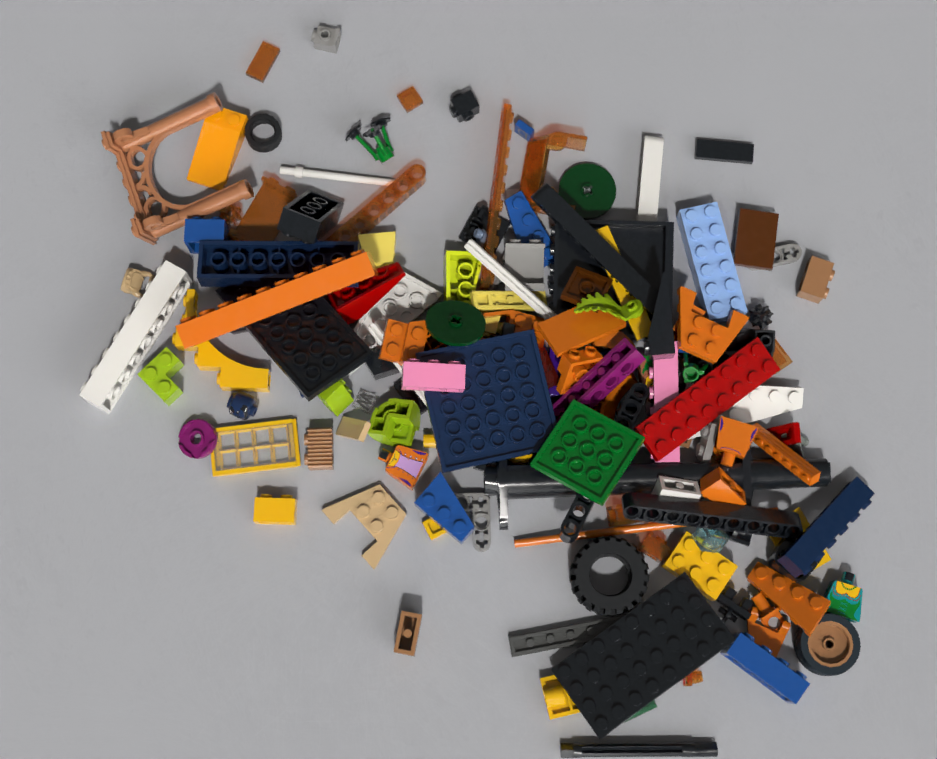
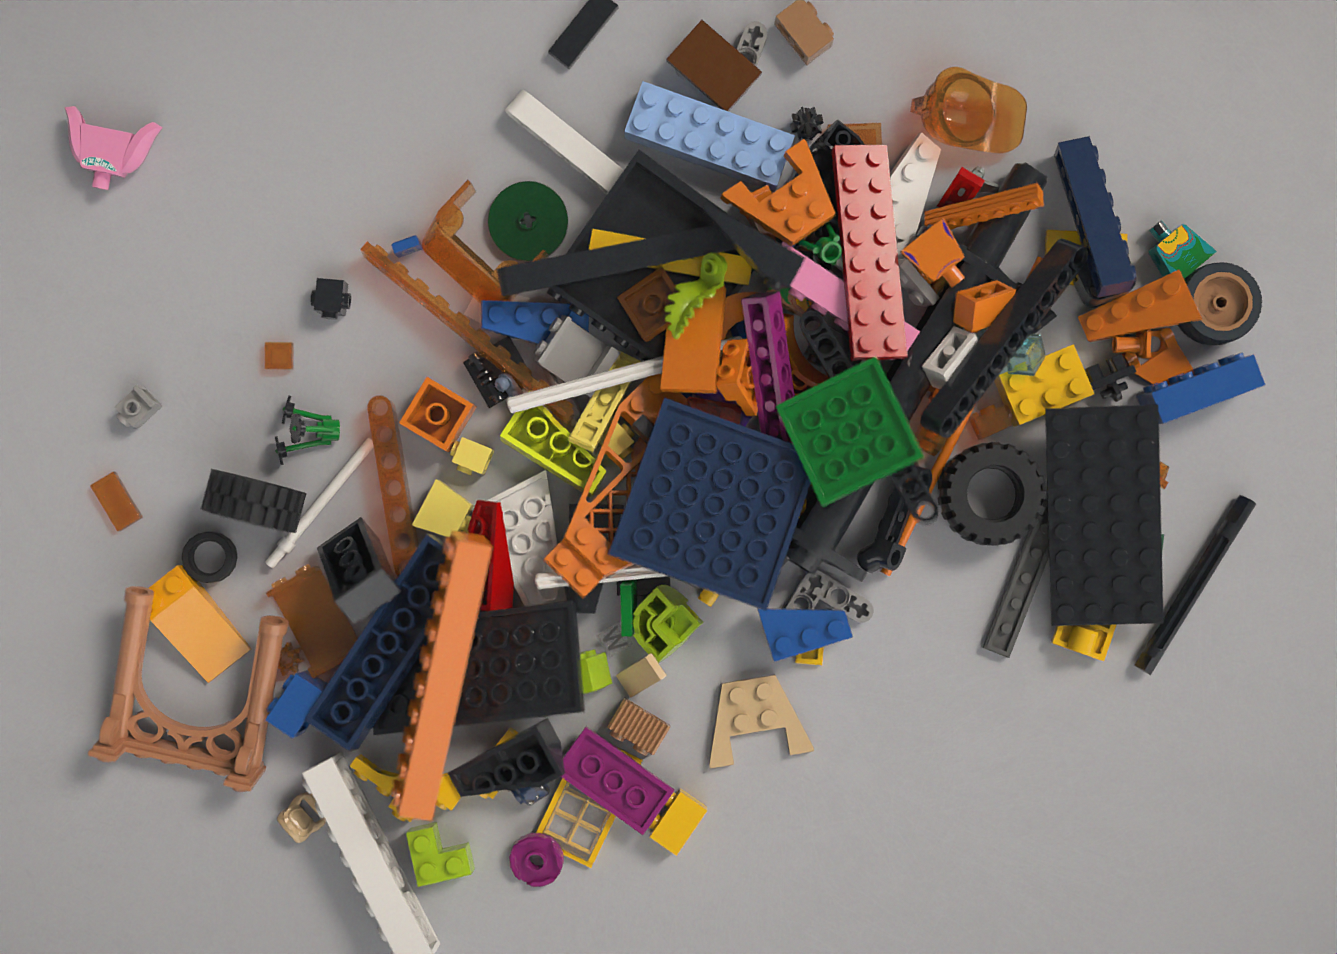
camera: 60 degrees left, 10 degrees up
(251, 384) = (519, 762): none -> black wedge
(277, 453) = (615, 780): none -> magenta plate
(313, 133) = (253, 501): none -> black tyre
(392, 392) = (628, 606): none -> green tile
(404, 464) = (718, 642): torso -> none
(408, 633) = (913, 759): medium nougat brick -> none
(422, 245) = (471, 456): none -> light yellow brick
(433, 376) = (650, 552): bright pink brick -> none
(435, 209) = (437, 414): none -> orange brick
(455, 323) = (612, 496): dark green piece -> none
(531, 530) = (886, 550): none -> black plate
(838, 411) = (972, 112): none -> clear orange piece

